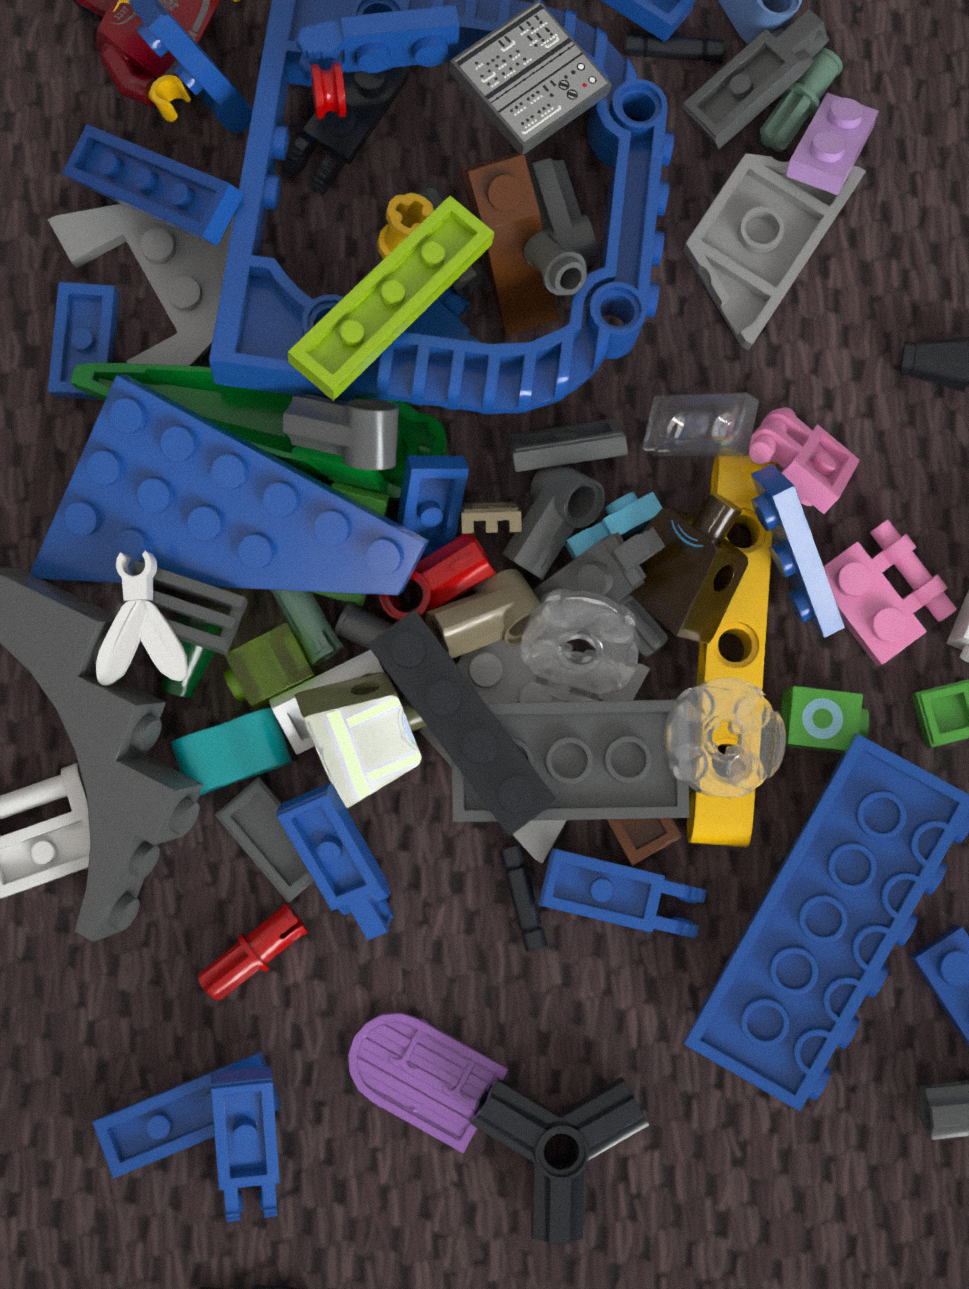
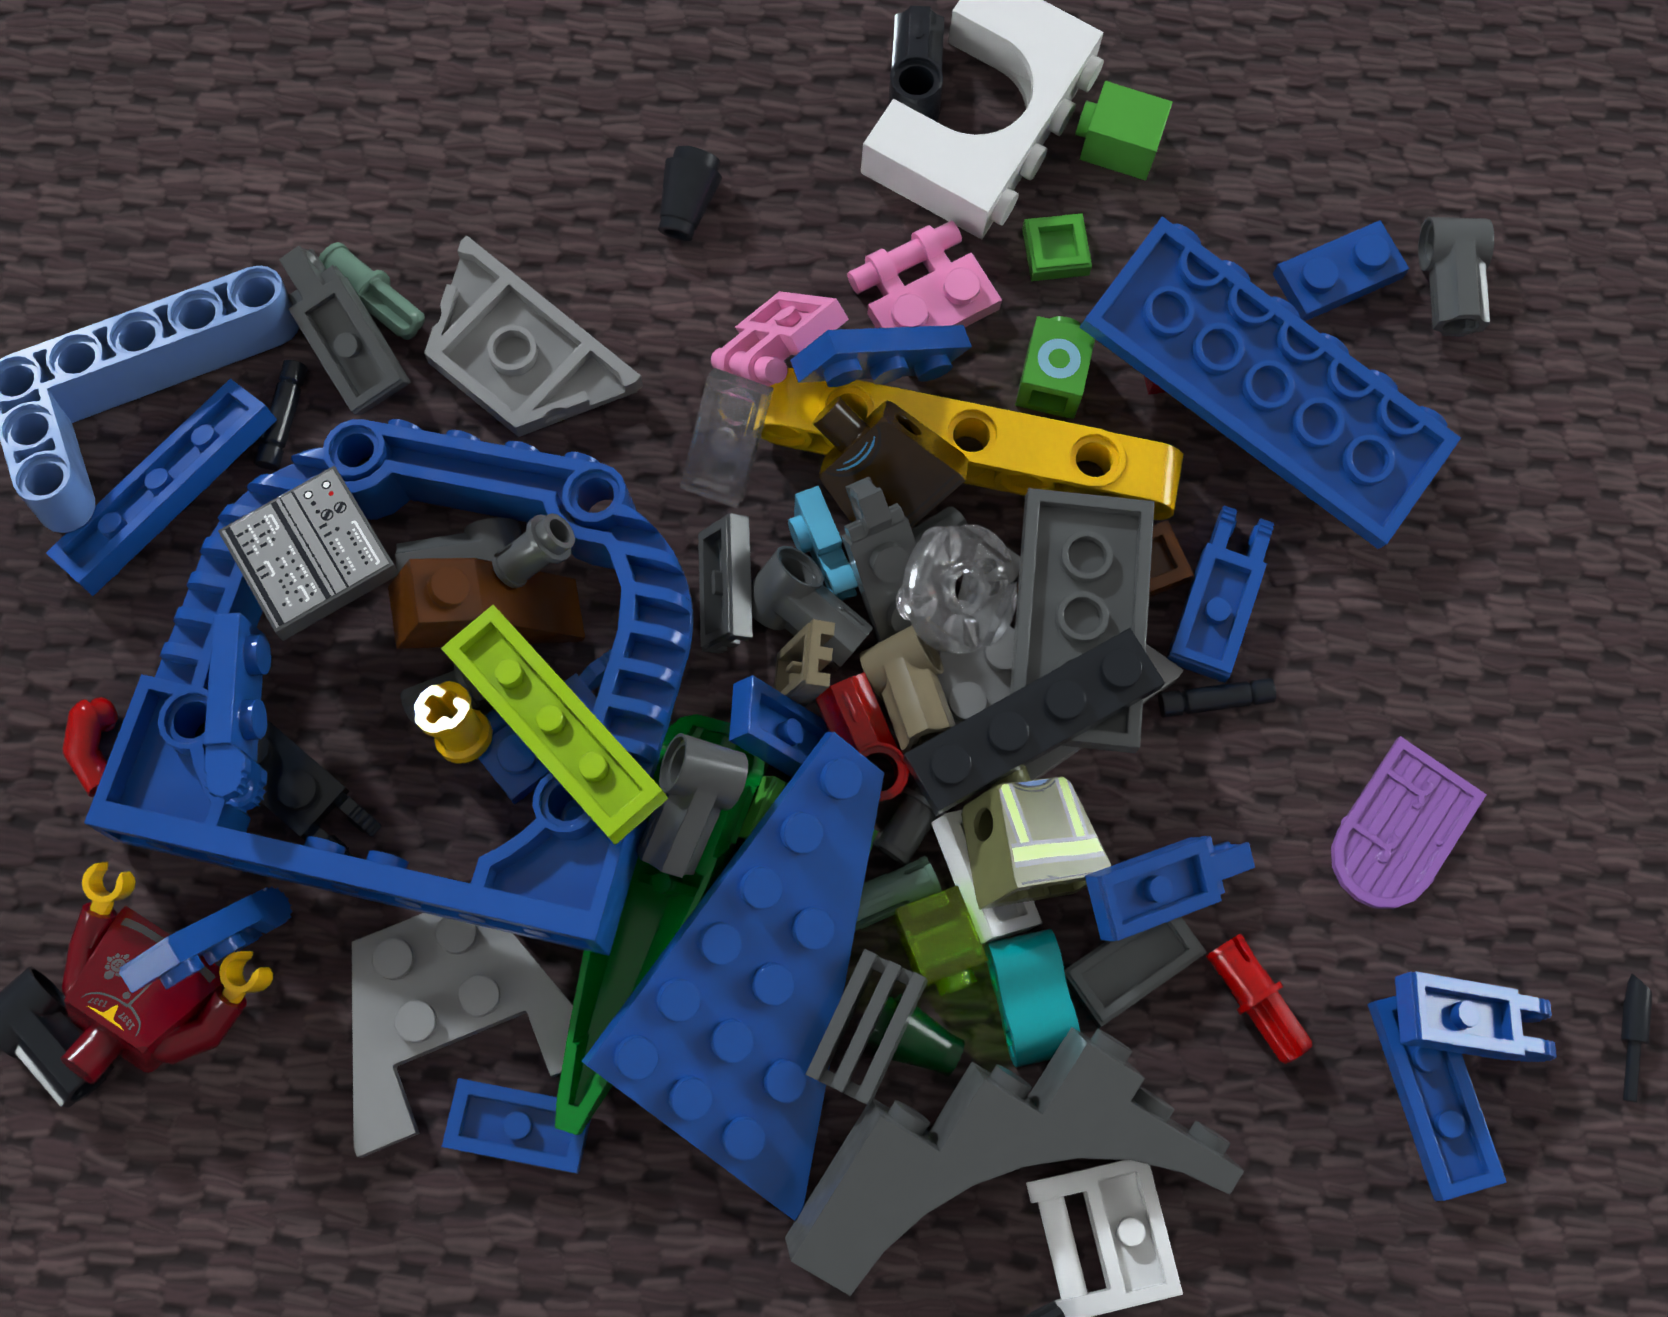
camera: 85 degrees left, 10 degrees down
(139, 621) = (882, 1069): white piece -> none
(153, 184) = (348, 1008): blue plate -> none
(328, 90) = (285, 773): red bush -> none
(558, 1180) = (1467, 715): black piece -> none
(749, 716) = (1068, 482): clear plate -> none
(832, 143) = (431, 263): lavender plate -> none

